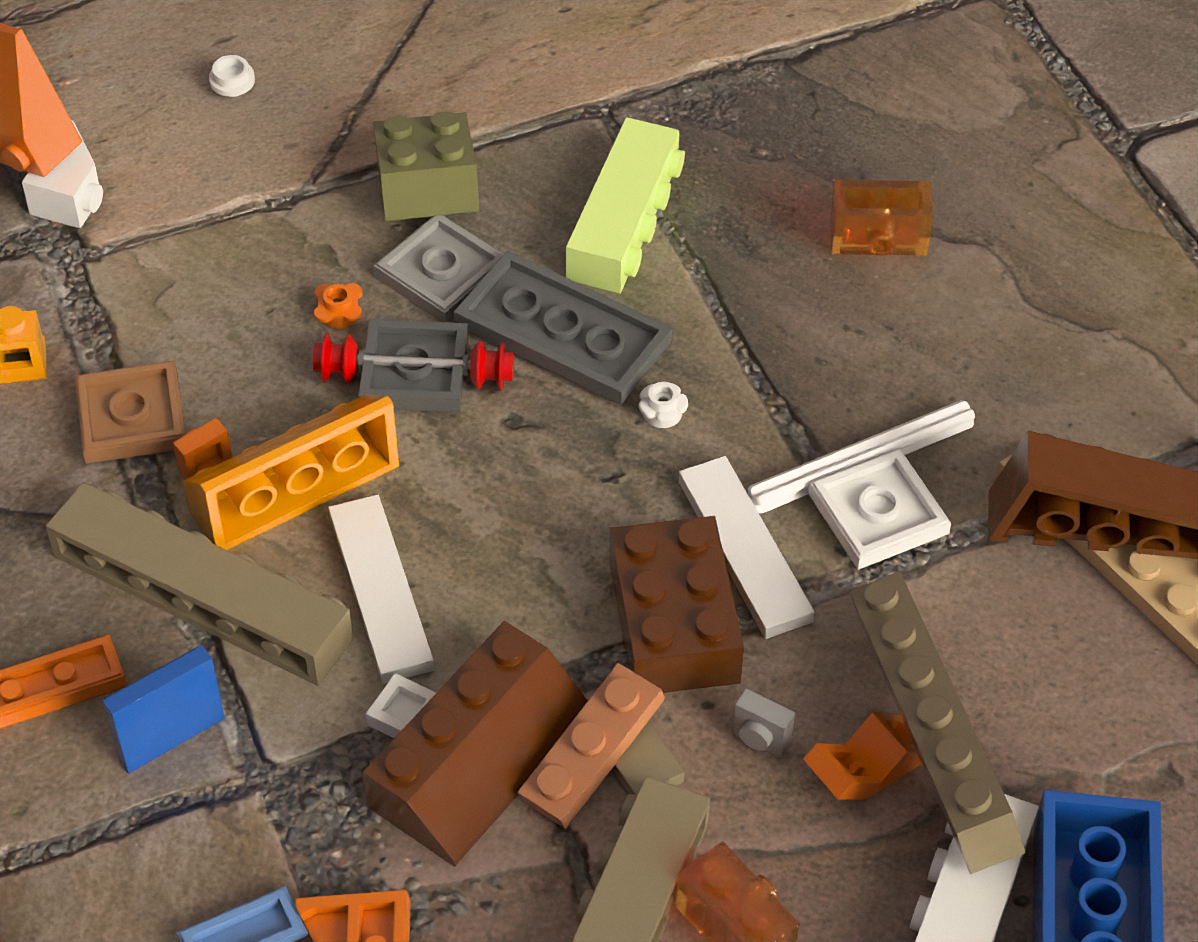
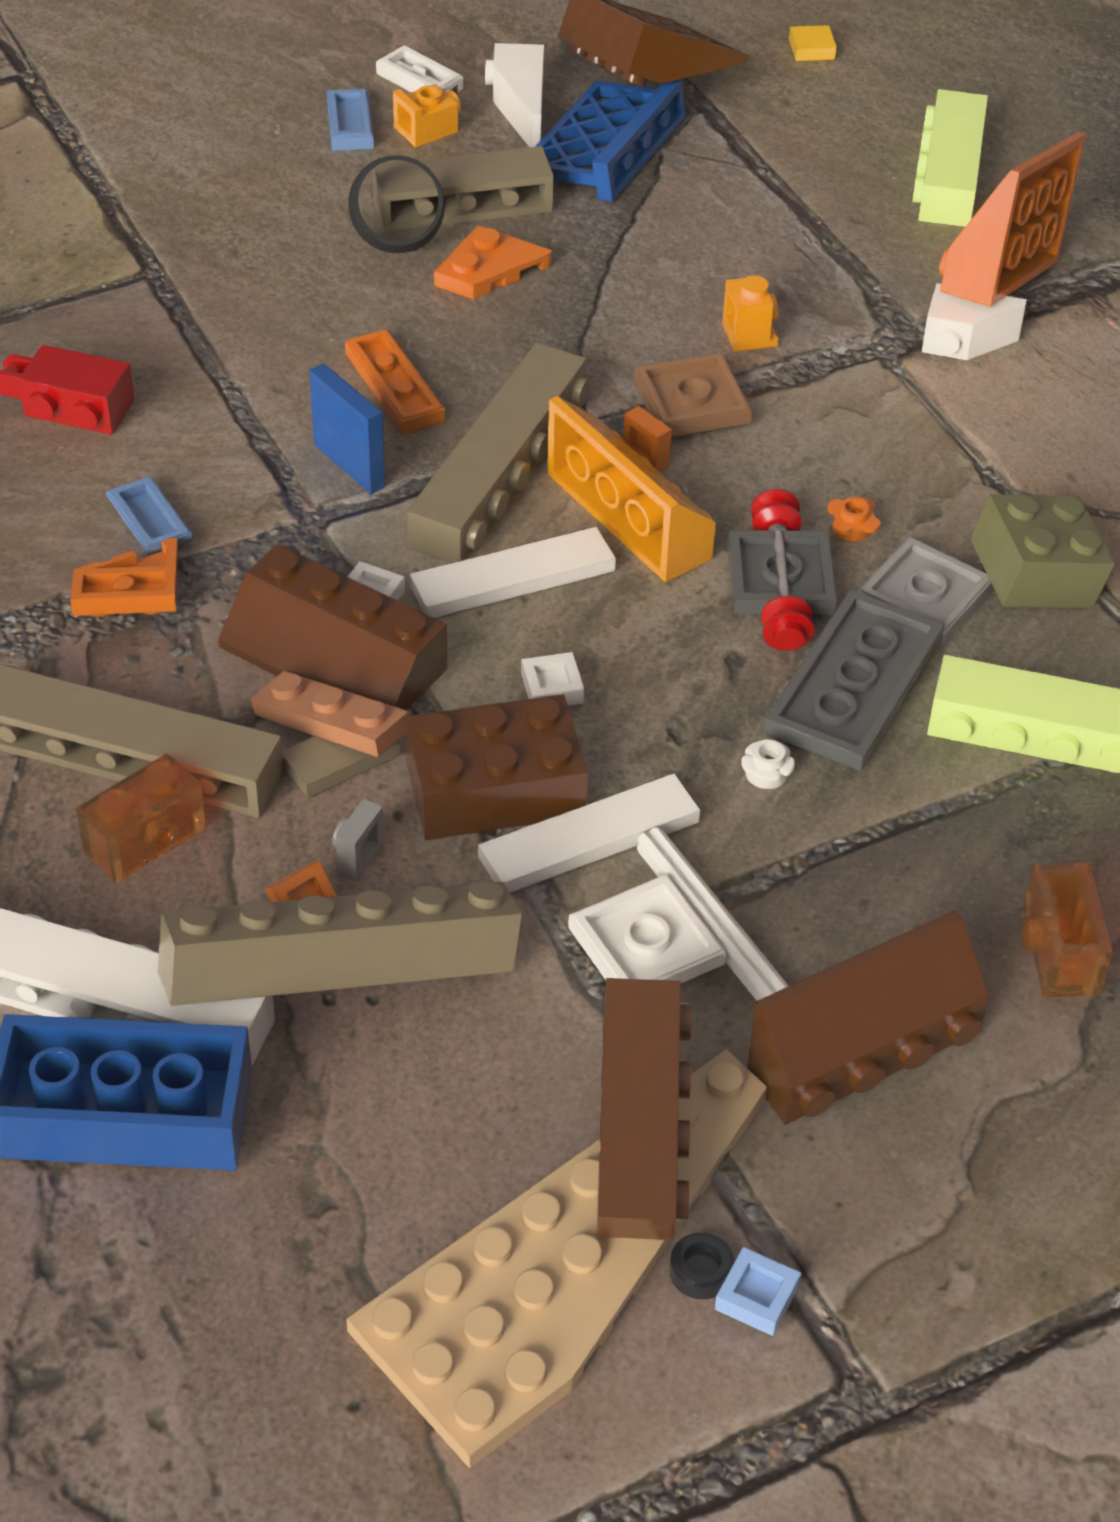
camera: 85 degrees right, 5 degrees down
(551, 558) = (553, 676): none -> white plate
(980, 356) = (867, 1018): none -> reddish brown slope

